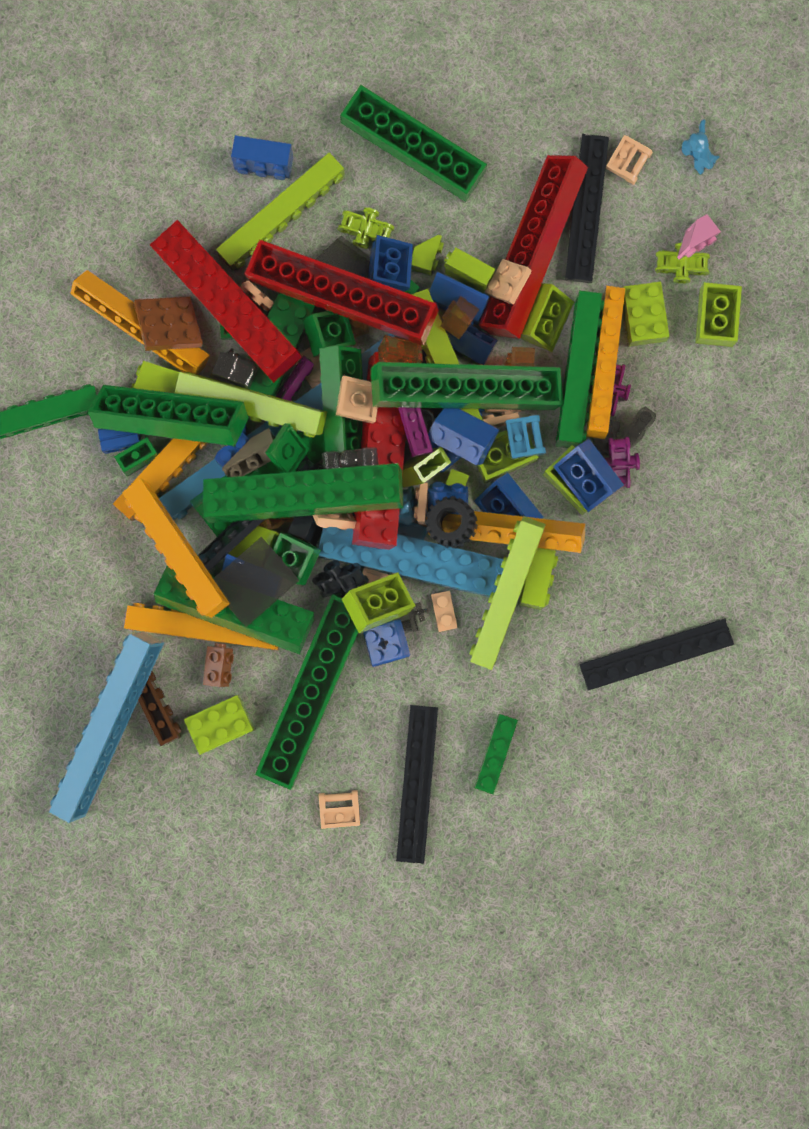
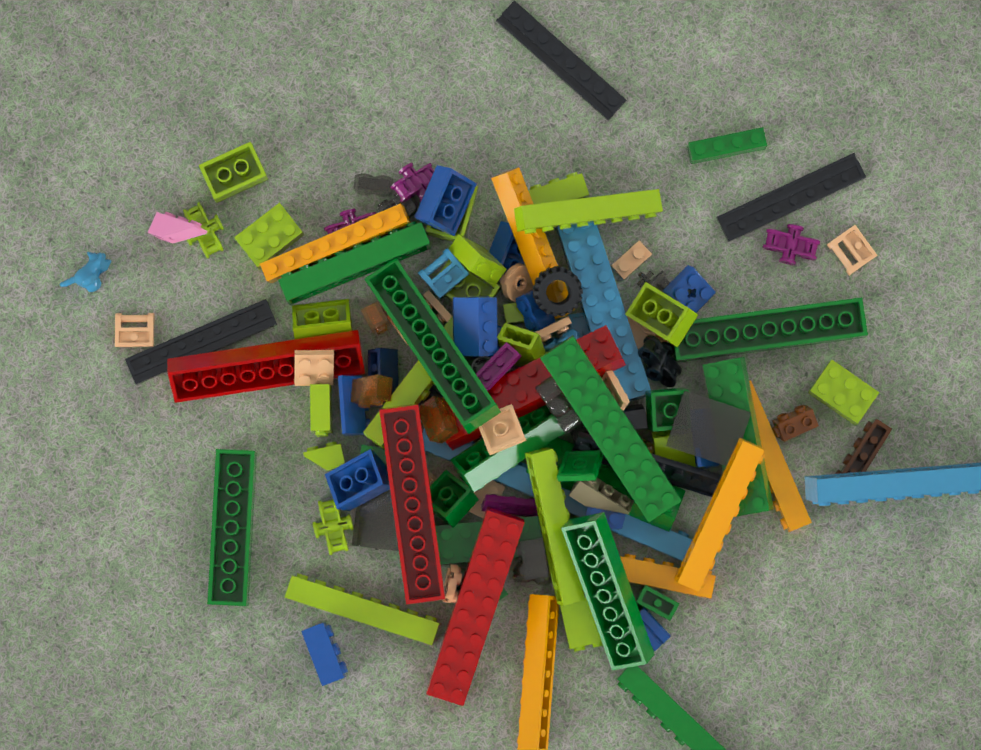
camera: 115 degrees left, 0 degrees up
(167, 323) = (524, 646): dark orange plate -> none
(380, 753) = (797, 246): none -> magenta axle
(487, 494) = (510, 280): none -> light nougat plate
(520, 472) = (477, 259): none -> lime brick

